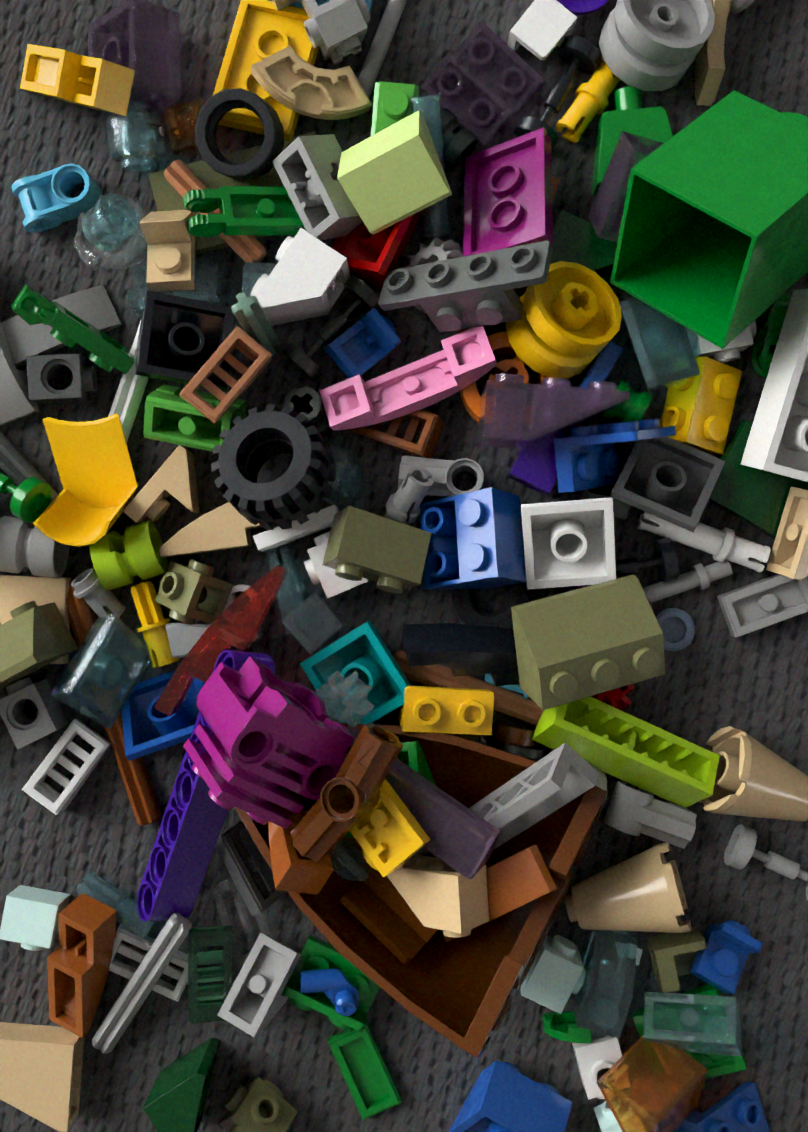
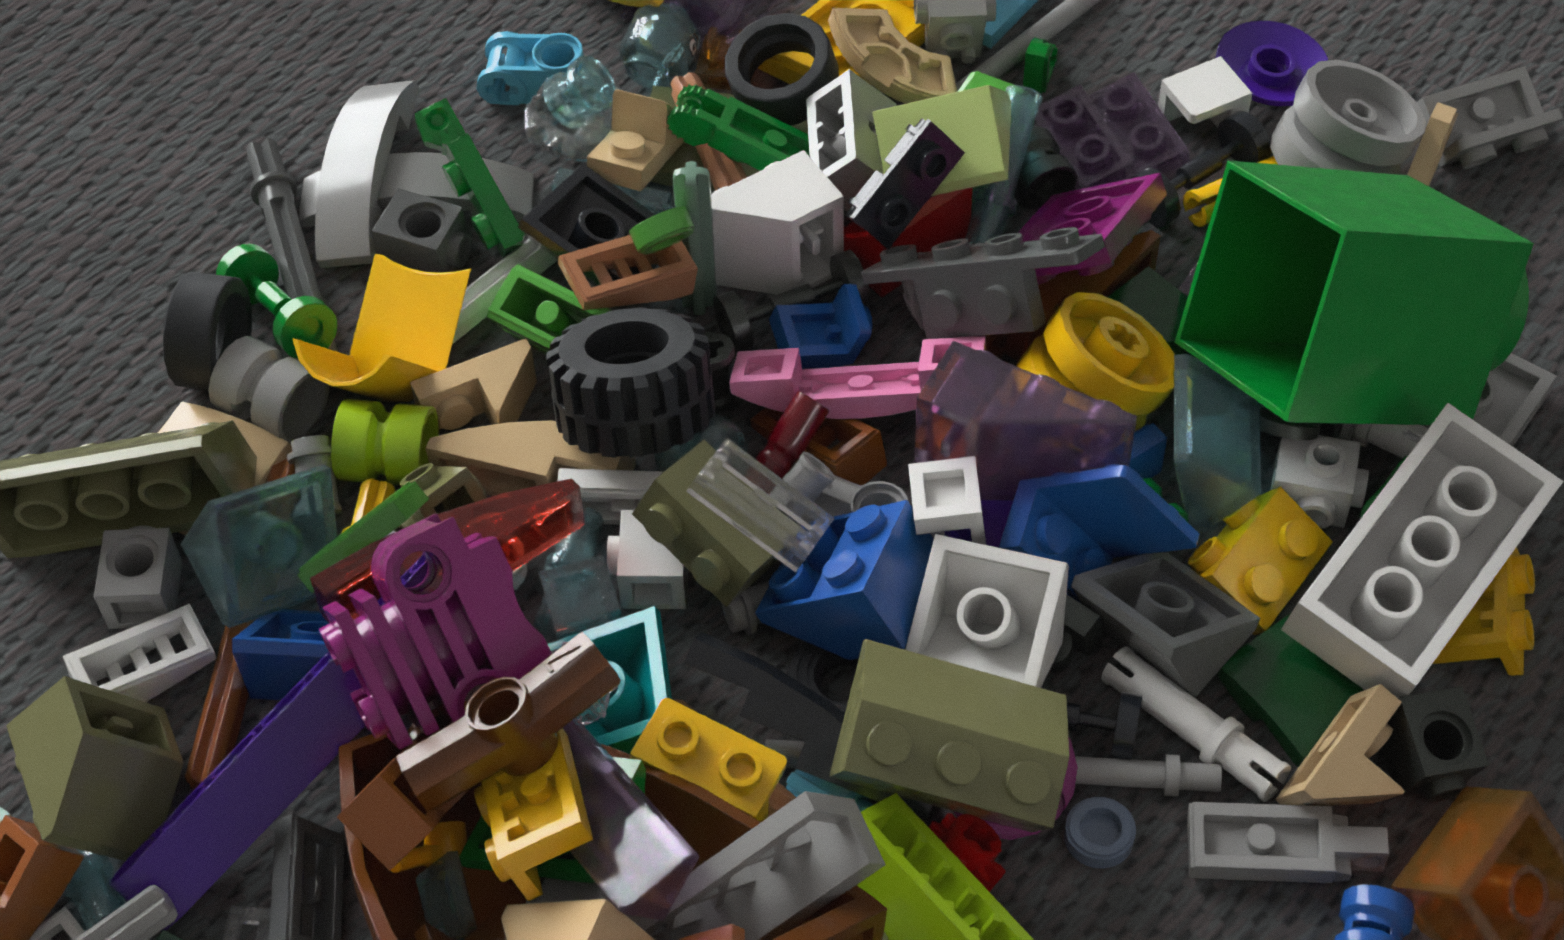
camera: 30 degrees right, 35 degrees down
(93, 863) = (96, 767): none -> olive slope
(164, 650) = (368, 529): none -> bright green tile
(241, 349) = (662, 230): none -> bright green tile
(369, 531) = (756, 511): none -> clear tile
(383, 453) = (792, 434): none -> dark red piece
(391, 210) = (915, 172): none -> black hinge
(411, 38) = (1039, 64): none -> green tile
(516, 477) = (947, 497): none -> white panel

